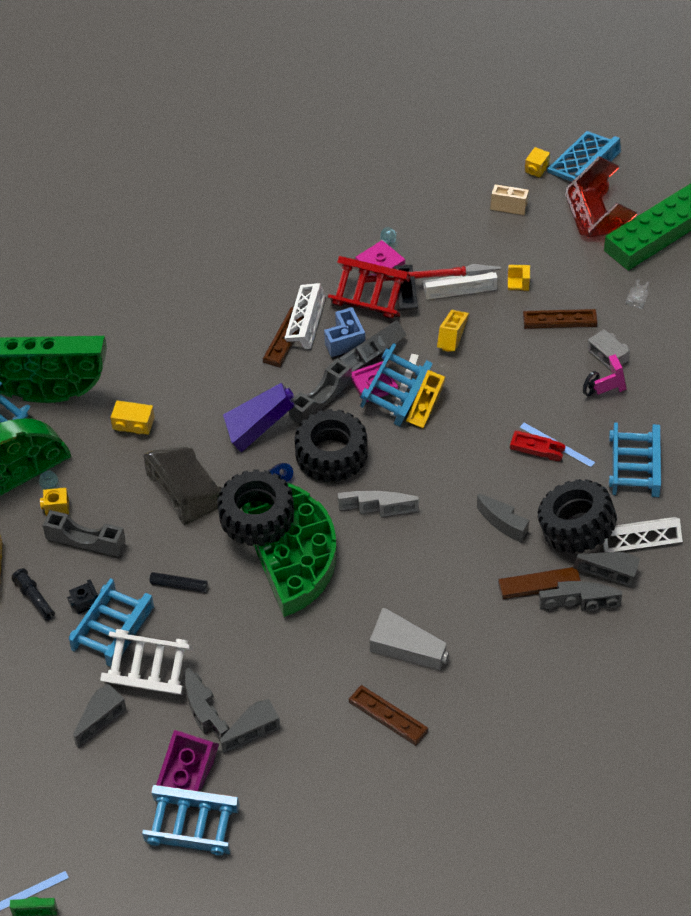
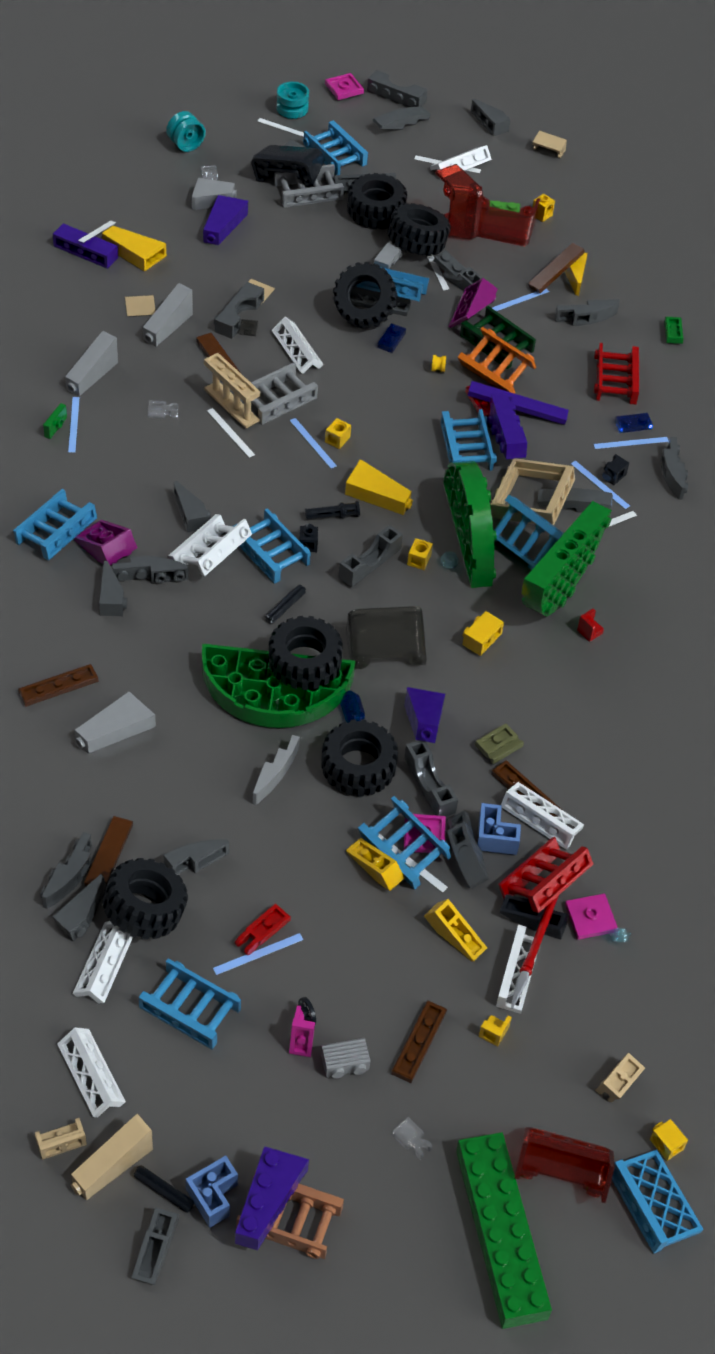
camera: 110 degrees right, 0 degrees up
(248, 367) = (499, 743): none -> olive plate

